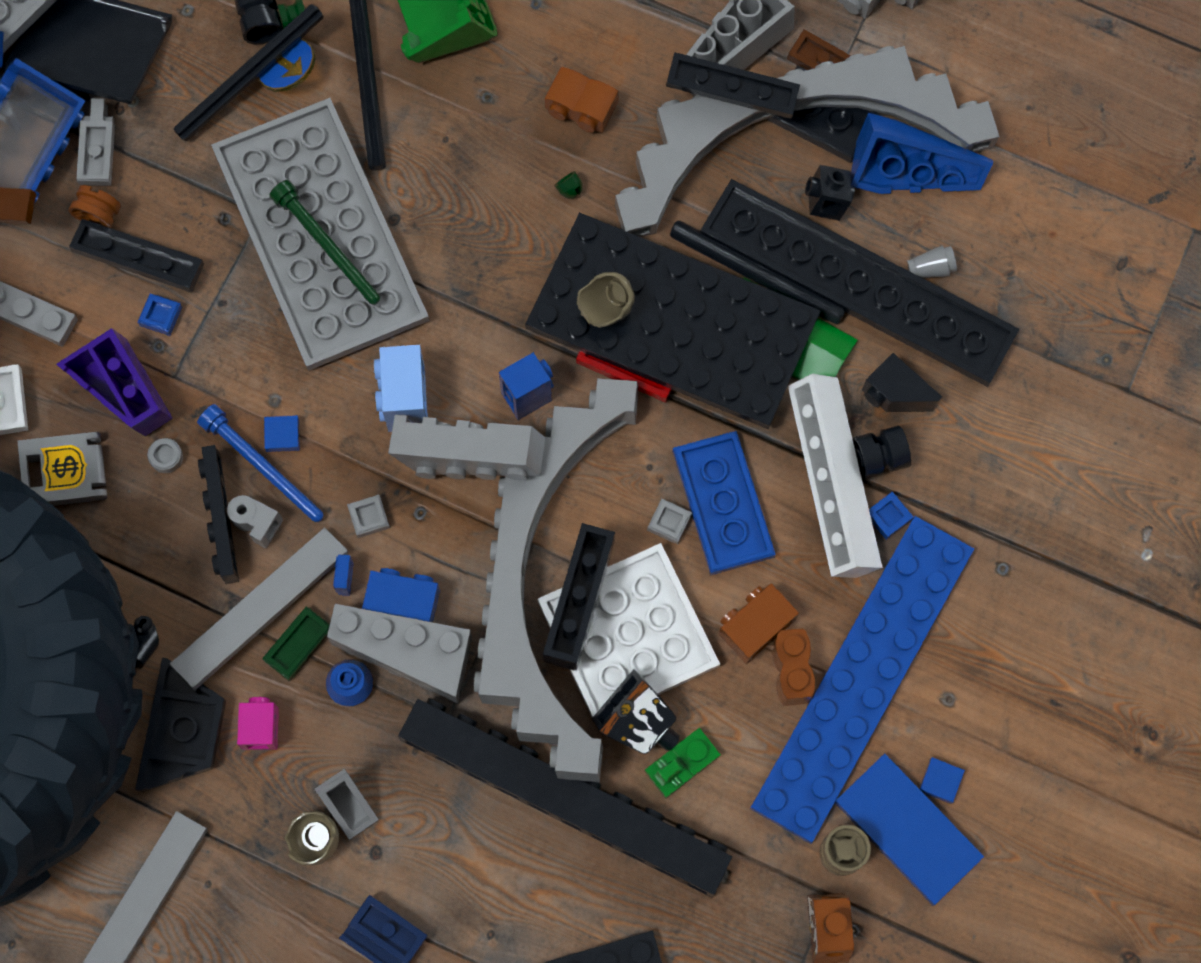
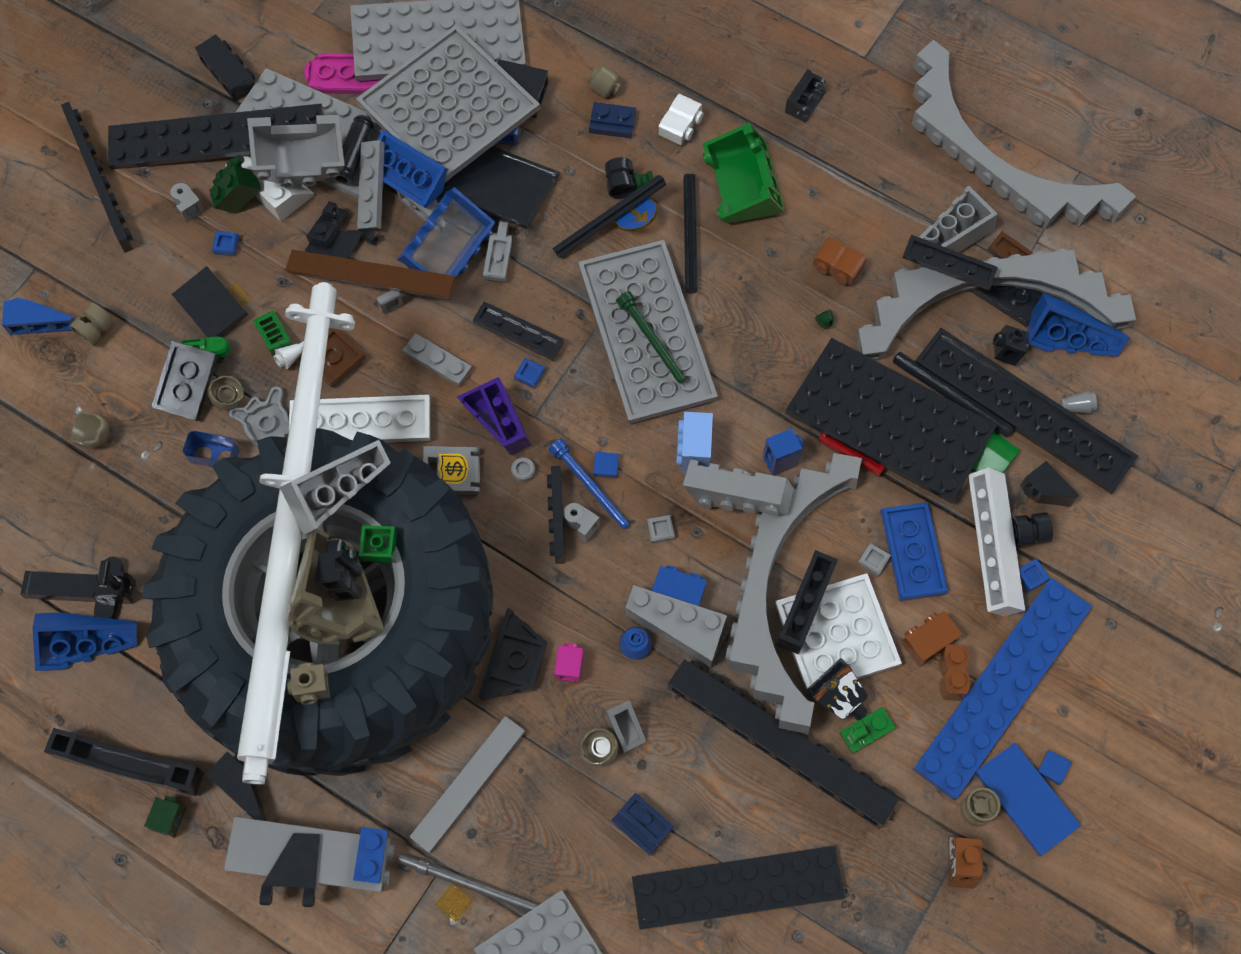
camera: 10 degrees right, 5 degrees down
(94, 206) = (493, 294): dark orange wheel -> none
(147, 639) = (498, 592): black arm -> none
(258, 609) = (578, 583): light grey tile -> none
(297, 644) = (601, 611): dark green tile -> none
(343, 575) = (639, 567): blue tile -> none
(606, 299) = (846, 398): dark tan hair -> none

